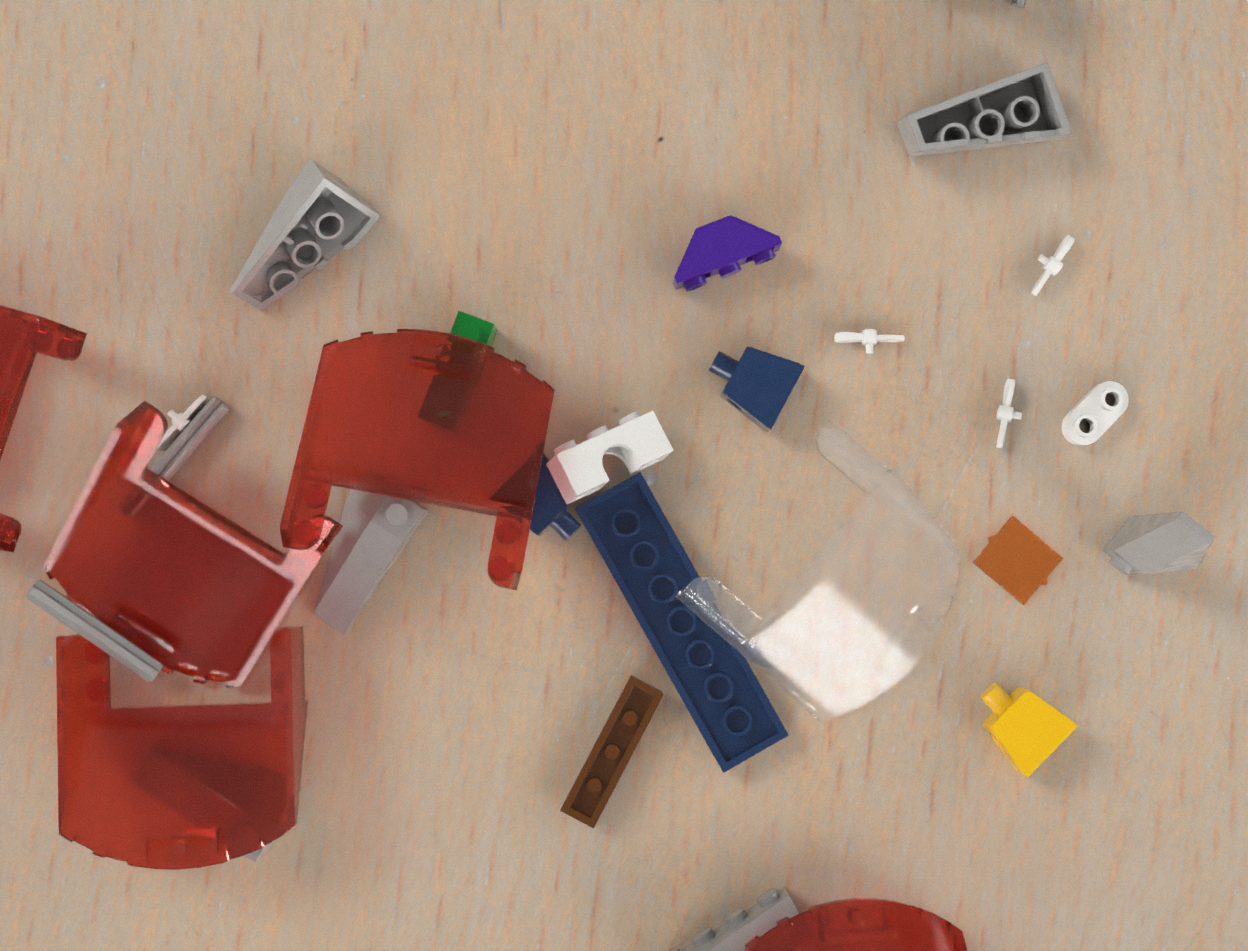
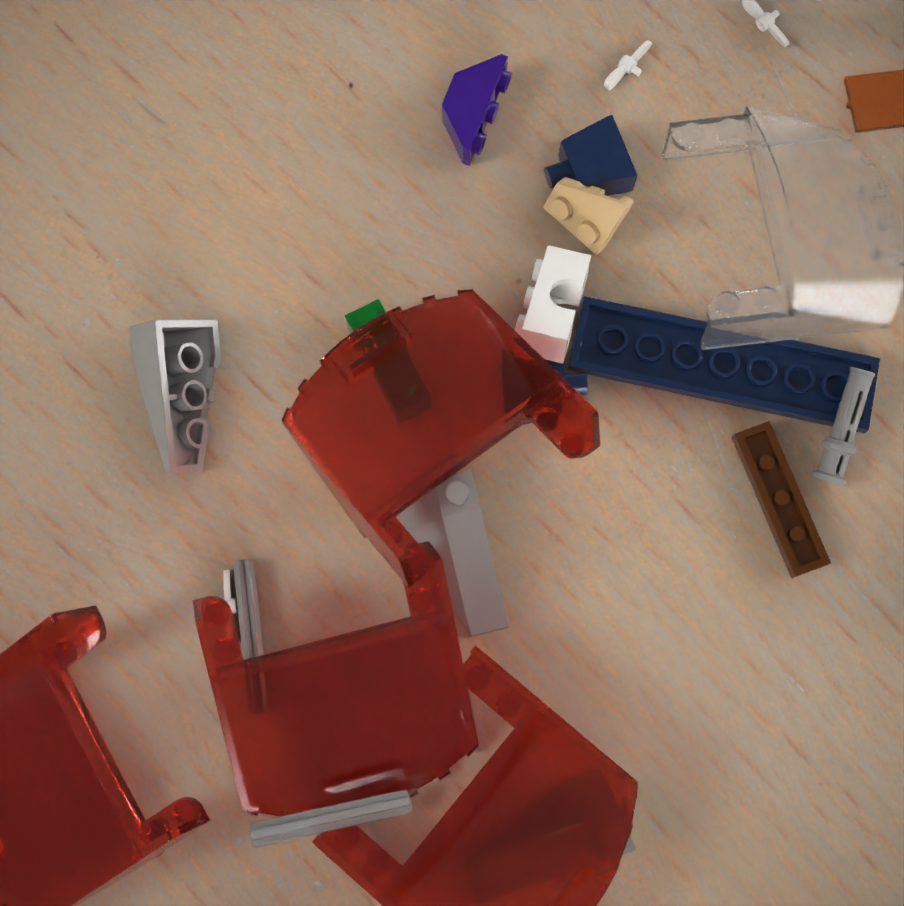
camera: 45 degrees left, 10 degrees down
(690, 760) = (840, 446): none -> light grey pin
(707, 415) = (587, 212): none -> tan wing

